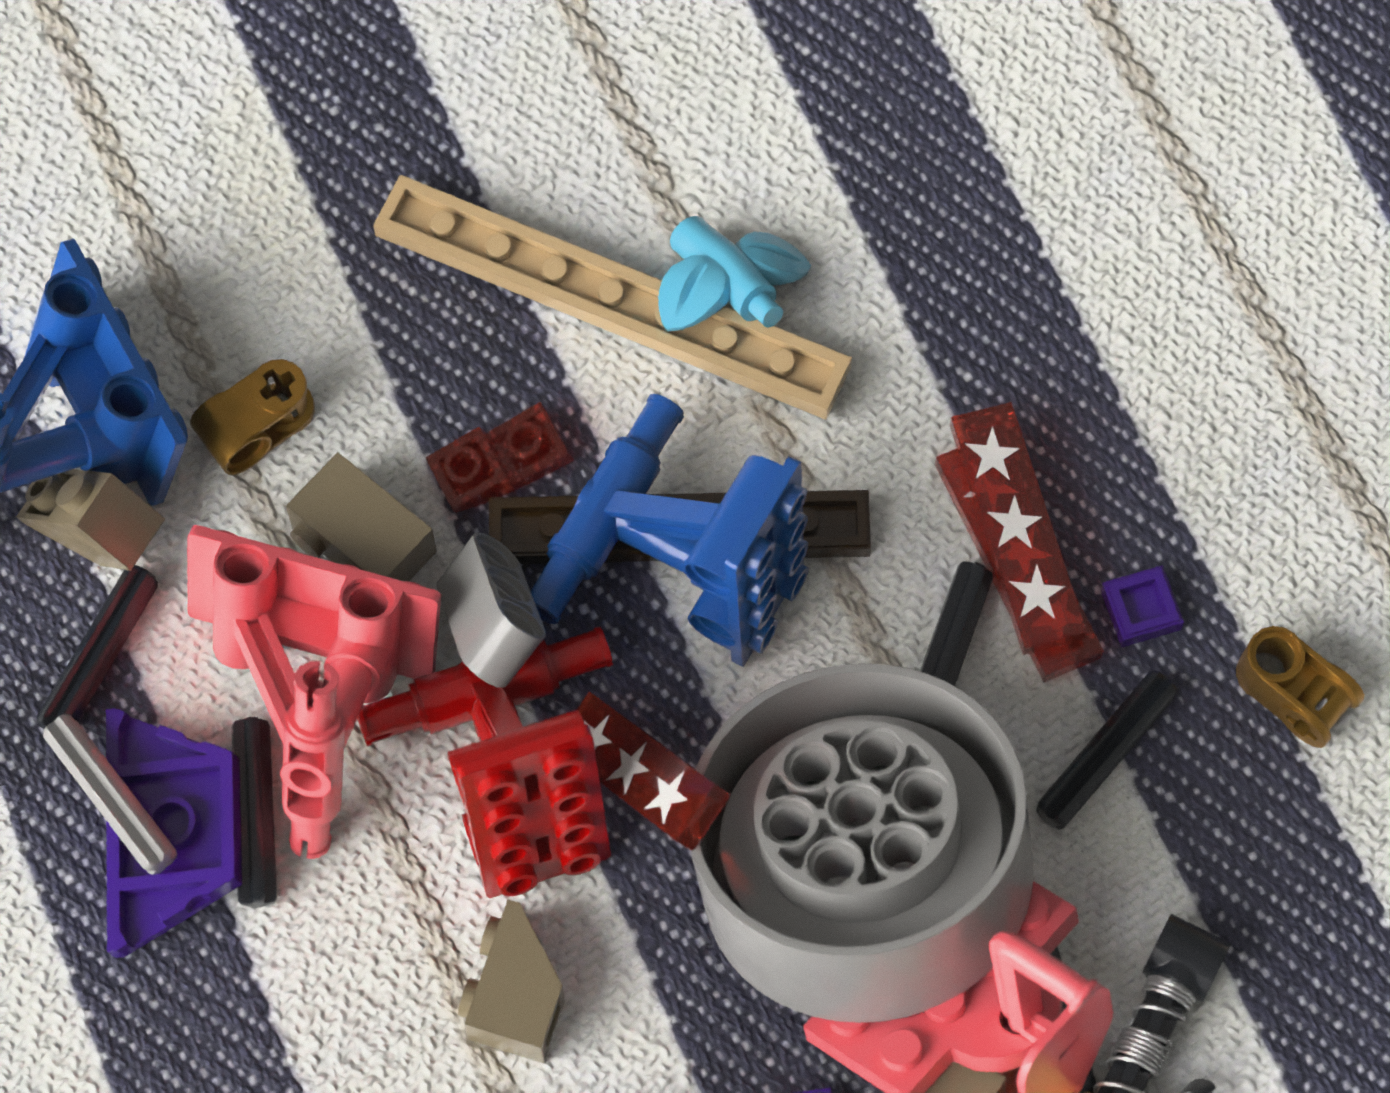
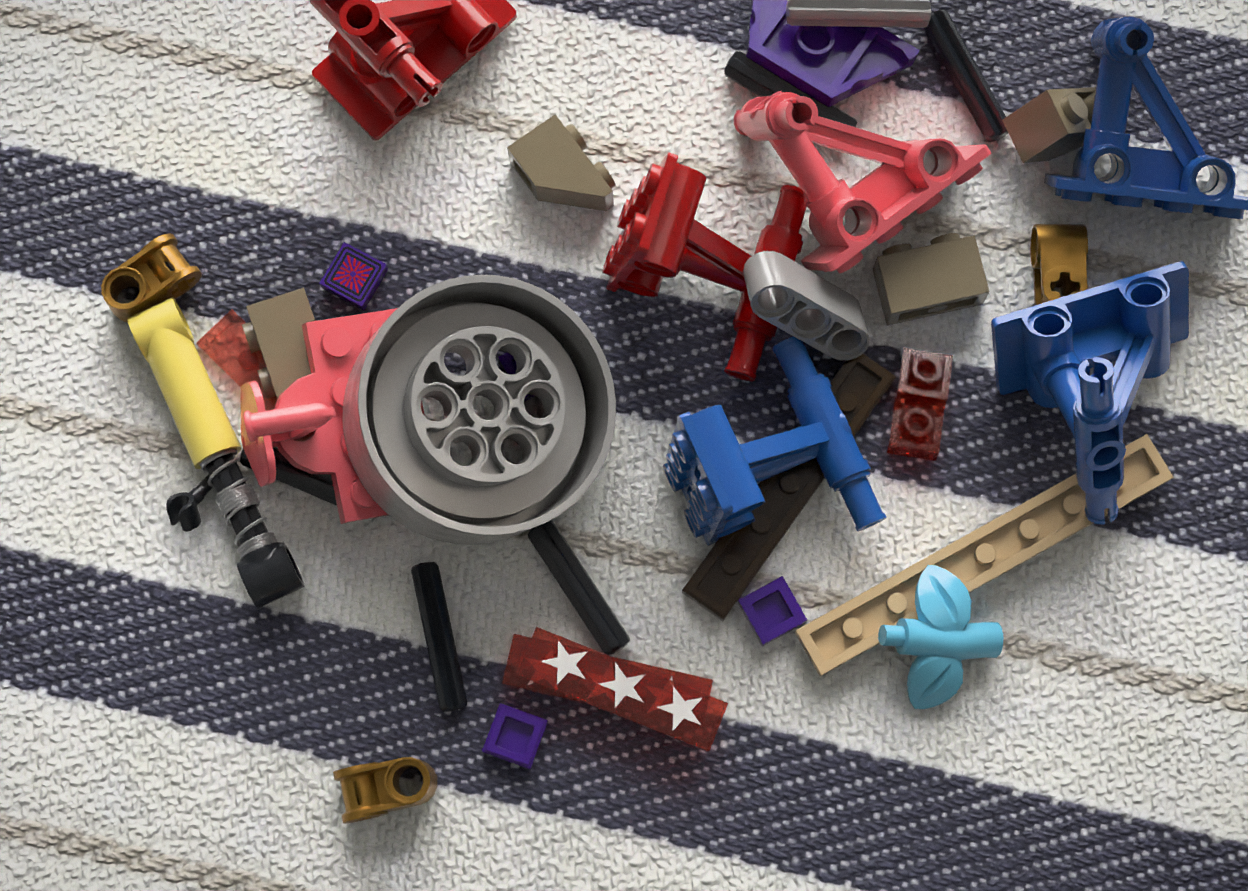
camera: 130 degrees right, 10 degrees up
(329, 339) = (1059, 342): none -> blue plate
(651, 775) = (624, 313): clear red tile -> none
(825, 452) = (772, 611): none -> dark purple tile

